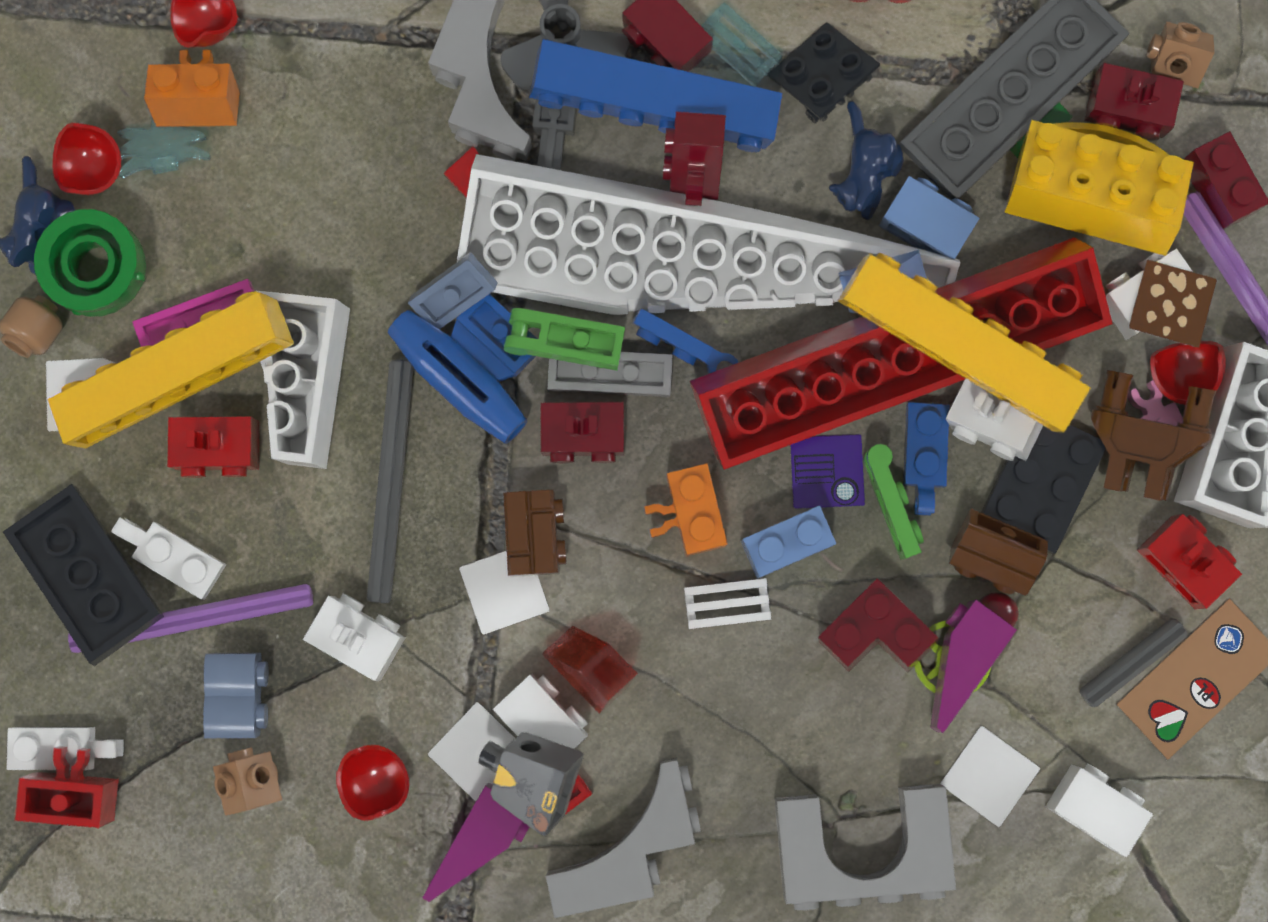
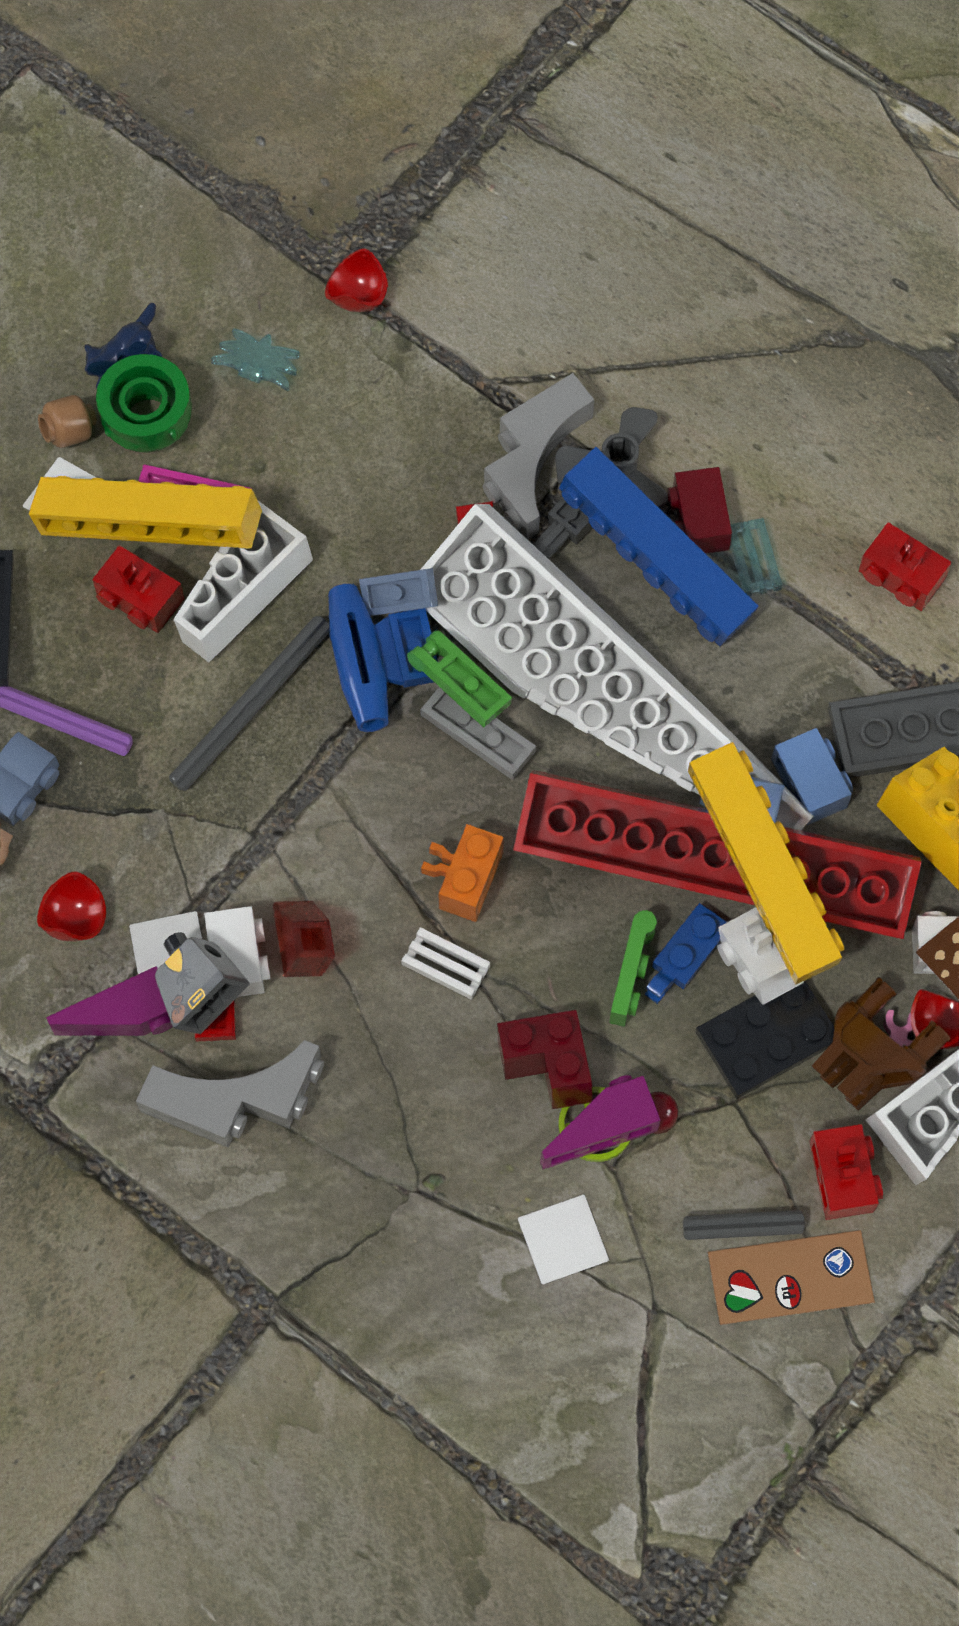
camera: 30 degrees right, 15 degrees down
(85, 159) = (196, 330): red helmet -> none
(172, 556) = (46, 652): white plate -> none
(192, 93) = (308, 333): orange brick -> none
(355, 637) = (138, 796): white brick -> none
(501, 598) = (279, 841): white sticker -> none
(532, 533) = (331, 809): reddish brown brick -> none
(582, 430) = (425, 758): dark red brick -> none
(686, 346) = (551, 746): blue plate -> none
(696, 156) = (657, 608): dark red brick -> none
(788, 542) = (526, 943): medium blue brick -> none
(824, 71) = (806, 615): black hinge -> none
(827, 472) = (597, 917): dark purple sticker -> none
(872, 160) = (795, 704): dark blue animal -> none
(920, 866) = (453, 1264): light grey arch -> none
(998, 553) = (688, 1060): reddish brown brick -> none
(1100, 810) = (633, 1318): white brick -> none

